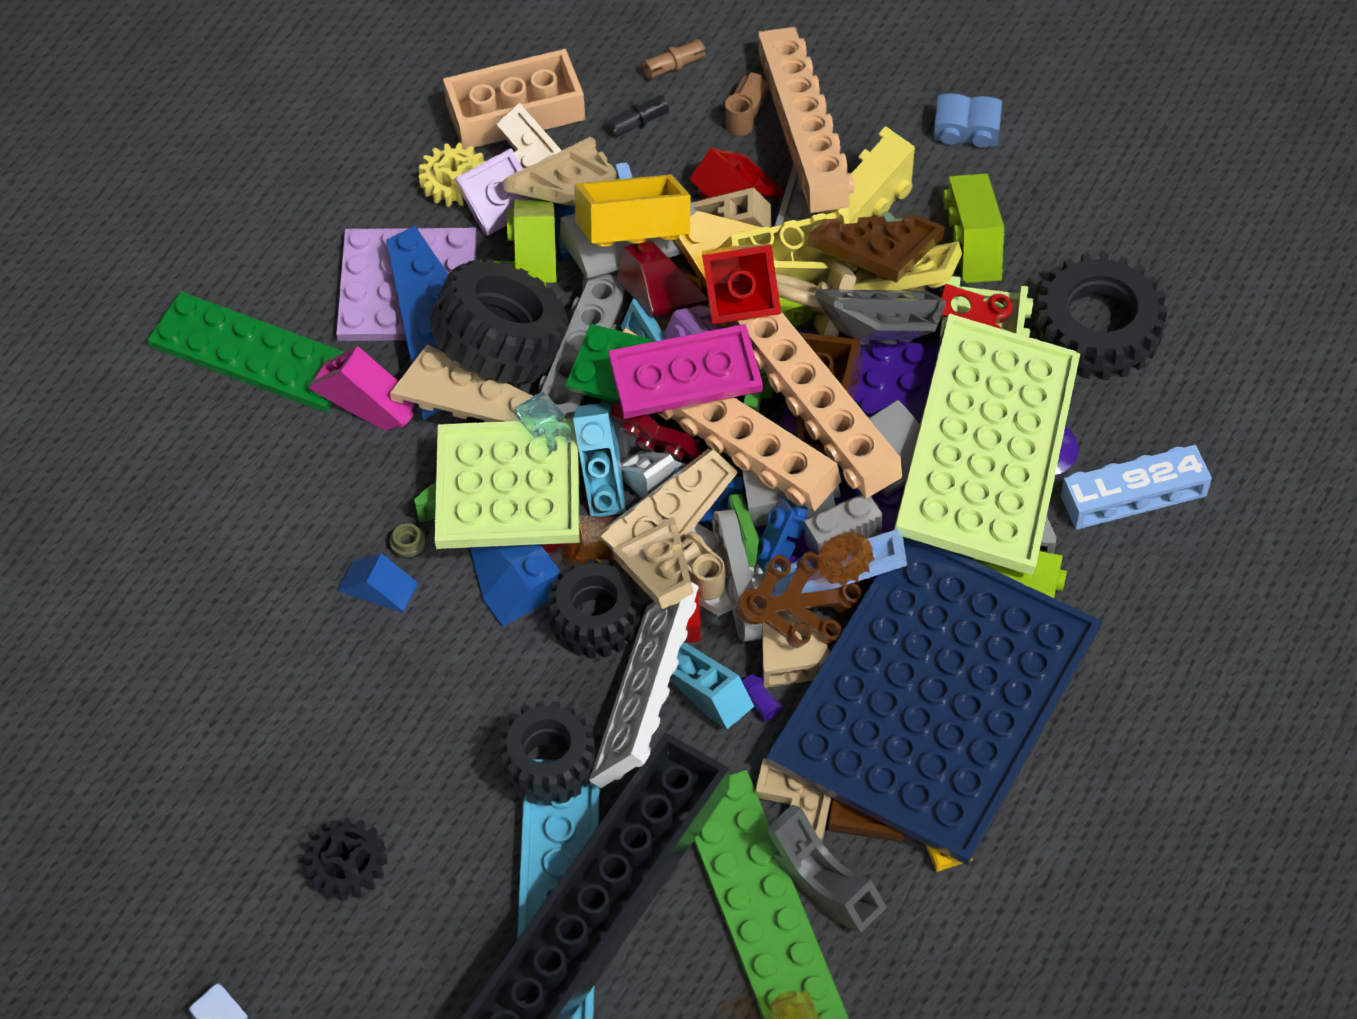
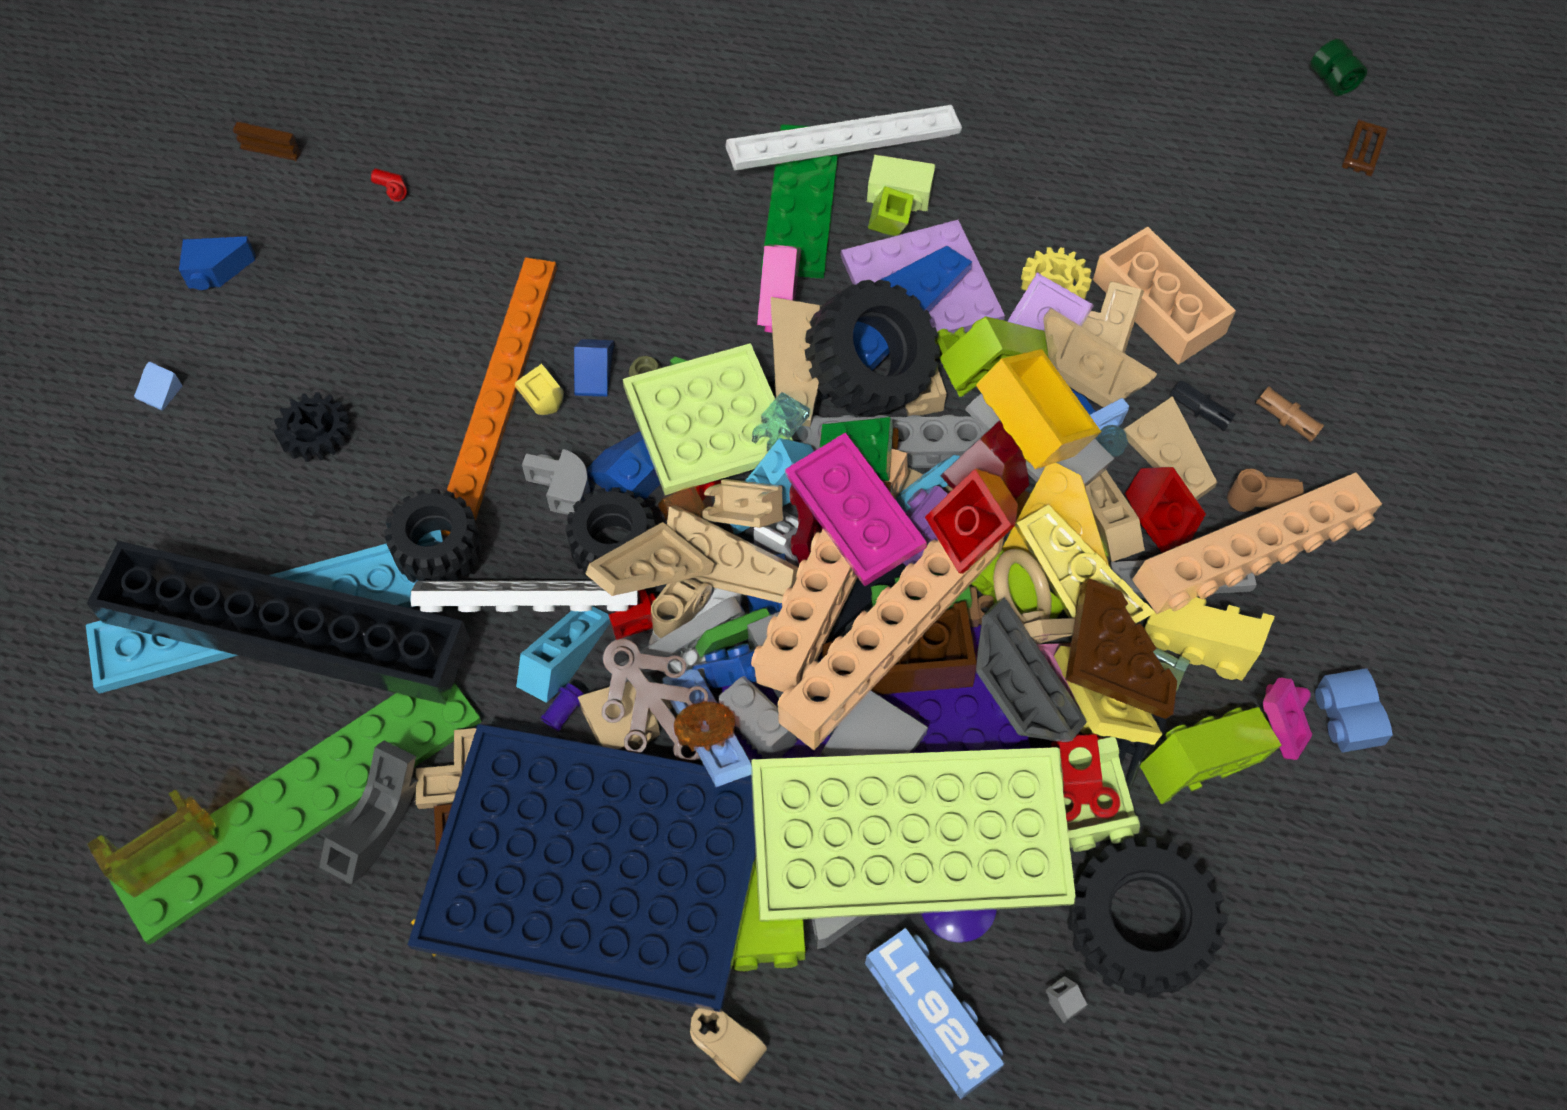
camera: 70 degrees right, 5 degrees up
(39, 723) = (393, 182): none -> red arm
(67, 928) = (214, 260): none -> blue slope
(199, 290) = (842, 137): none -> white tile
(279, 260) = (904, 176): none -> yellowish green brick
(317, 275) = (890, 211): none -> lime brick
(361, 673) = (498, 388): none -> orange plate
(393, 634) = (540, 391): none -> light yellow plate
(512, 632) = (565, 478): none -> light grey brick
(618, 477) = (745, 503): none -> tan hinge
(668, 152) = (1168, 442): none -> tan wing
(956, 159) = (1285, 712): none -> dark pink plate
(1118, 644) = (732, 1047): none -> tan piece
(1150, 393) = (1066, 998): none -> light grey piece

